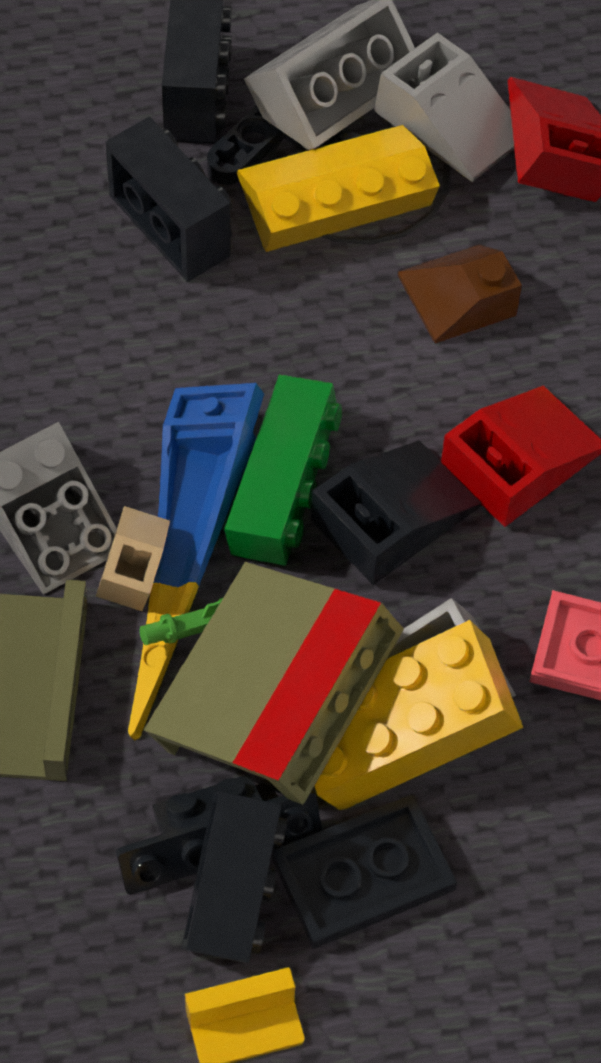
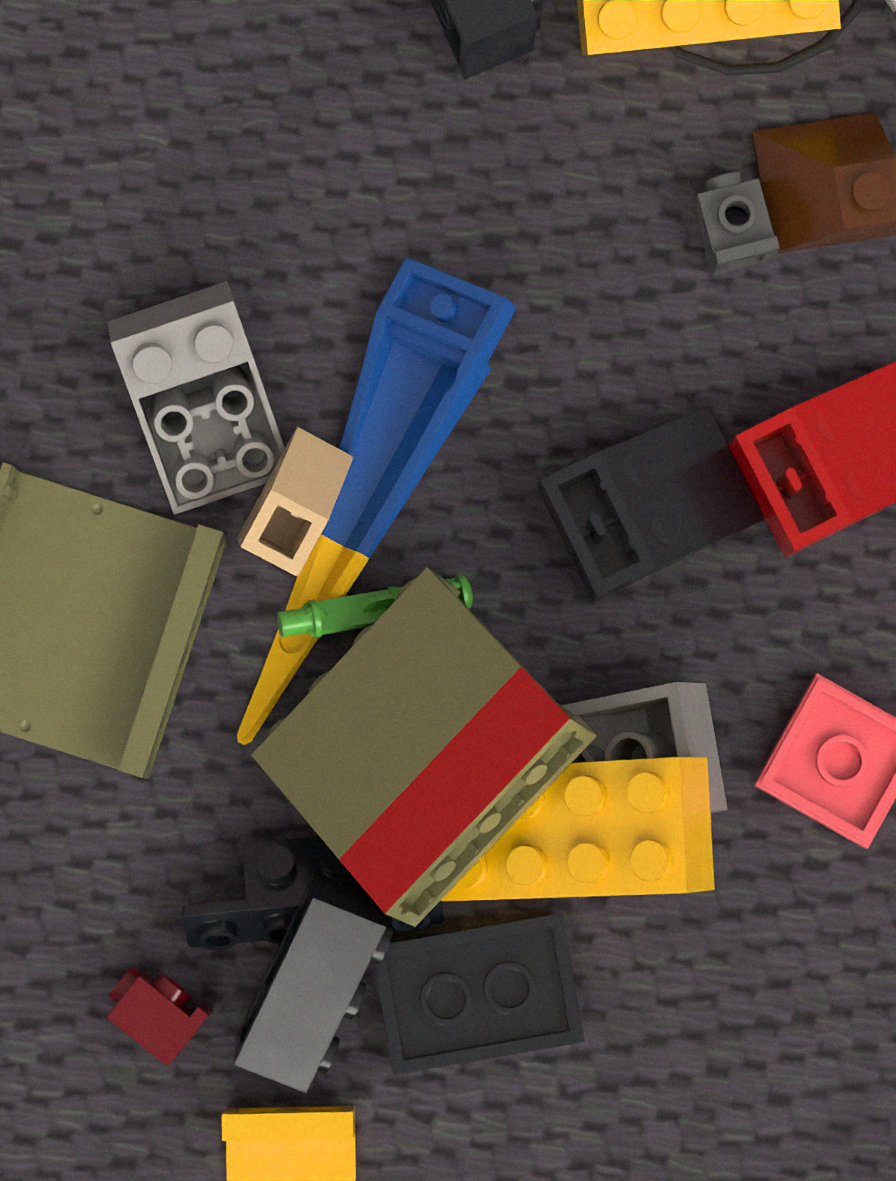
camera: 15 degrees right, 25 degrees up
(114, 941) = (156, 1013): none -> dark red brick
(283, 470) = (517, 417): green brick -> none
(403, 324) = (729, 245): none -> dark grey brick

